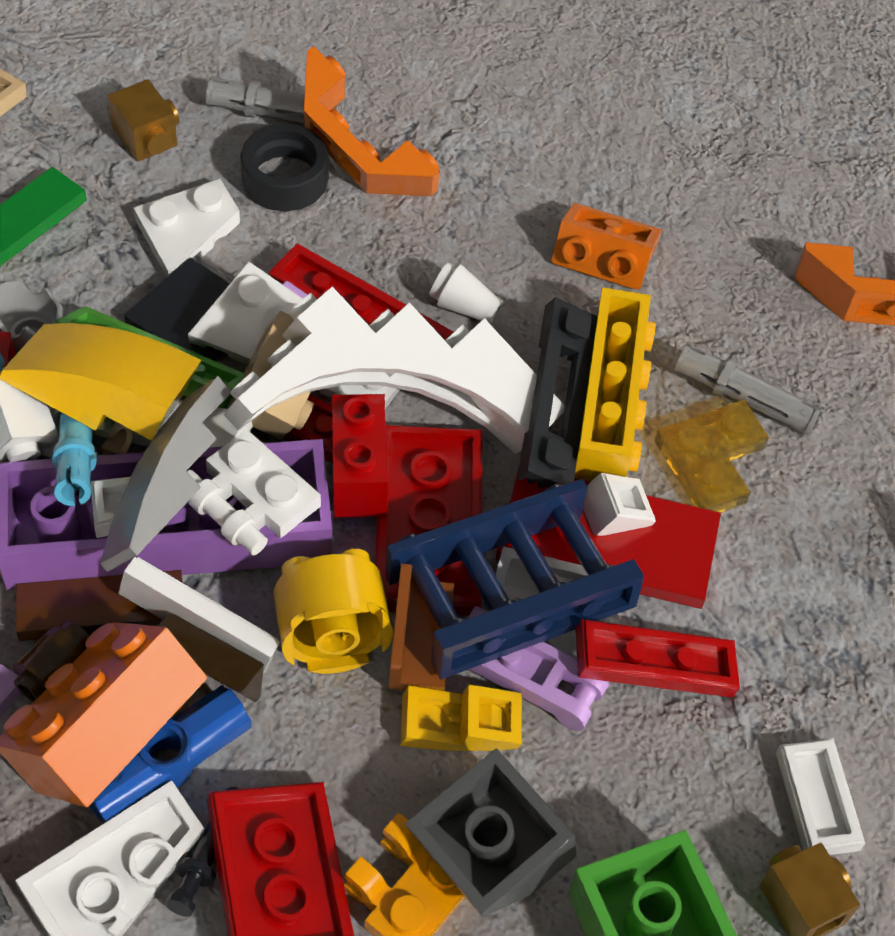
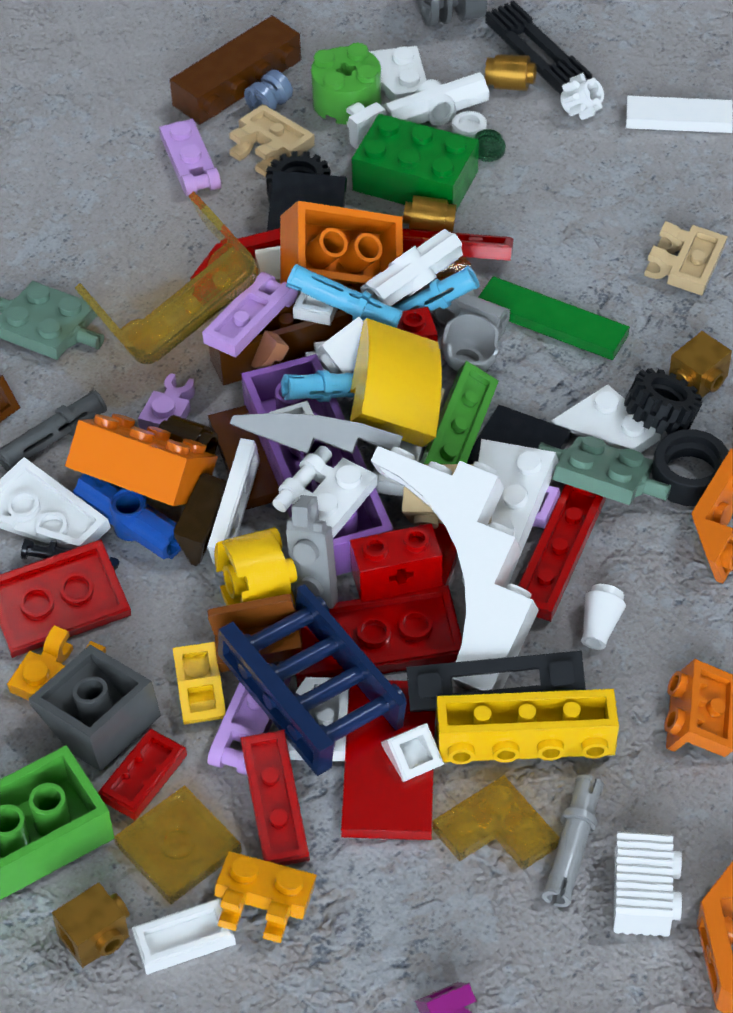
camera: 85 degrees right, 5 degrees down
(191, 160) = (662, 401): none -> black tyre
(268, 235) = (606, 470): none -> sand green plate
(339, 521) = (312, 550): none -> light grey hinge
(591, 804) = (142, 774): none -> red plate
(692, 781) = (177, 844): none -> clear yellow tile
(770, 692) = (265, 886): none -> light orange plate
(811, 340) = (645, 884): none -> white brick

